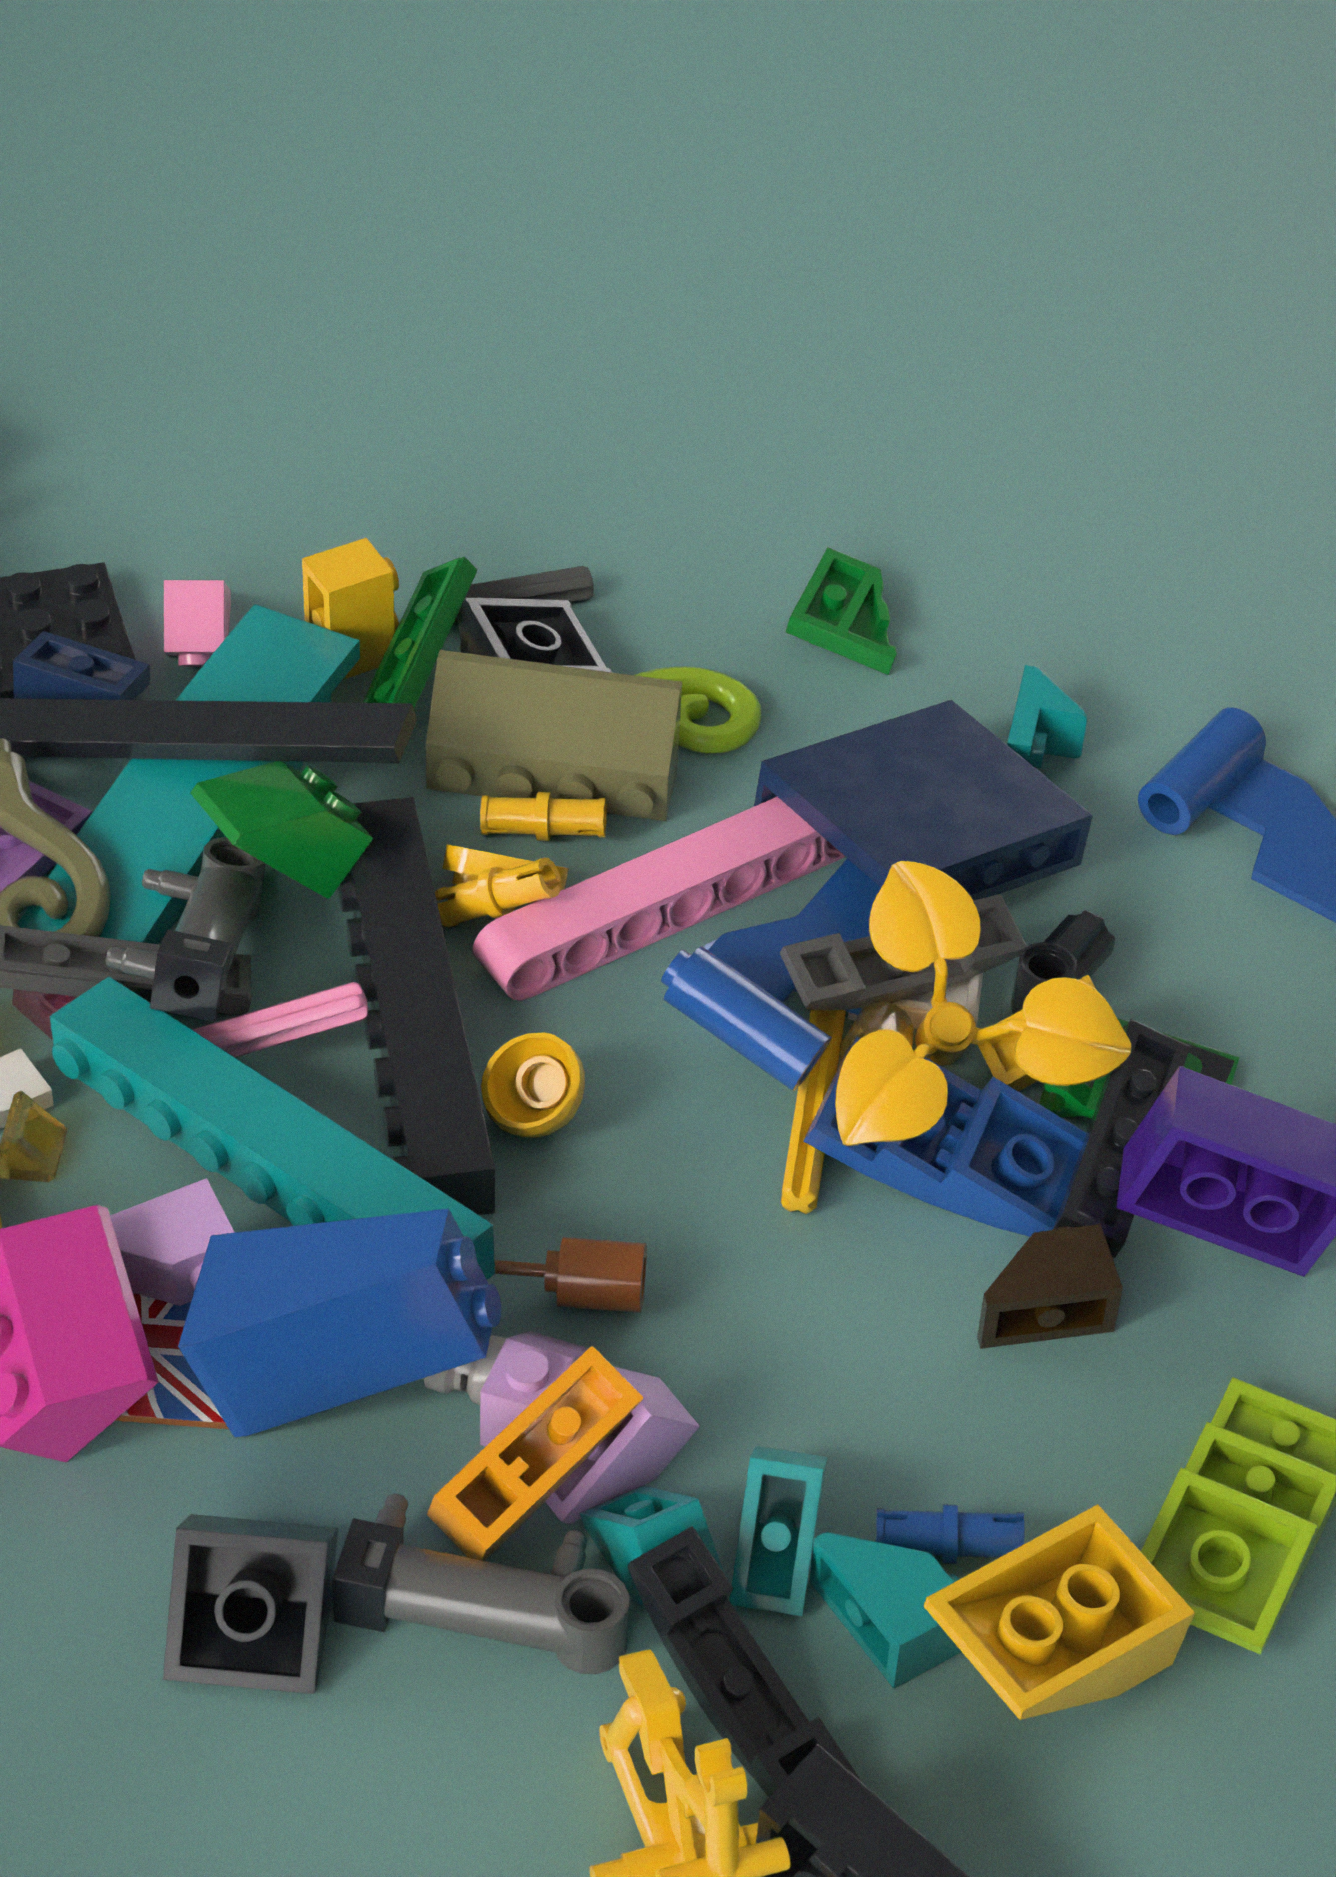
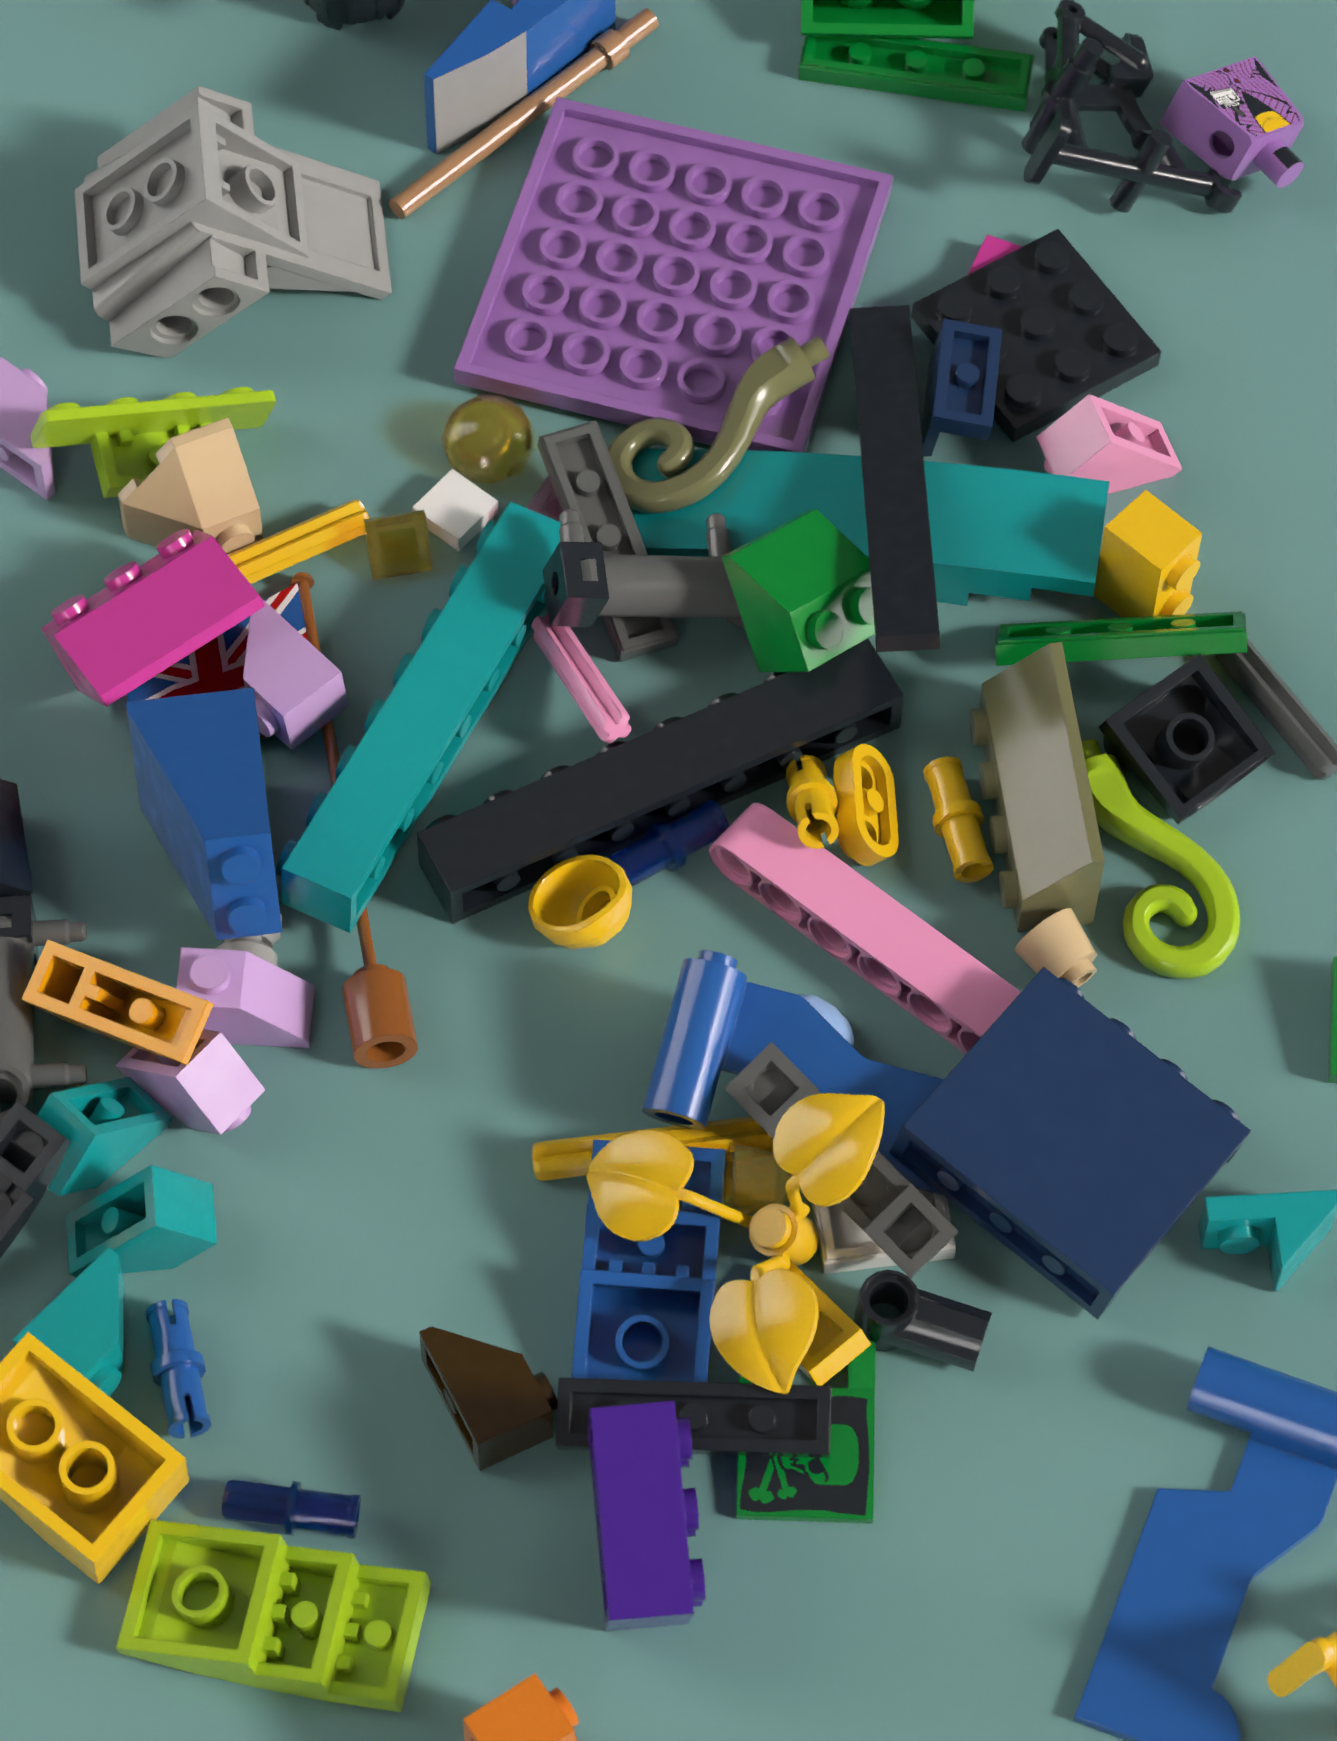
camera: 75 degrees right, 15 degrees up
(484, 1015) = (671, 843): none -> clear blue pin
(711, 784) = (1059, 947): none -> tan hat
(1133, 1470) = (291, 1508): none -> clear blue axle

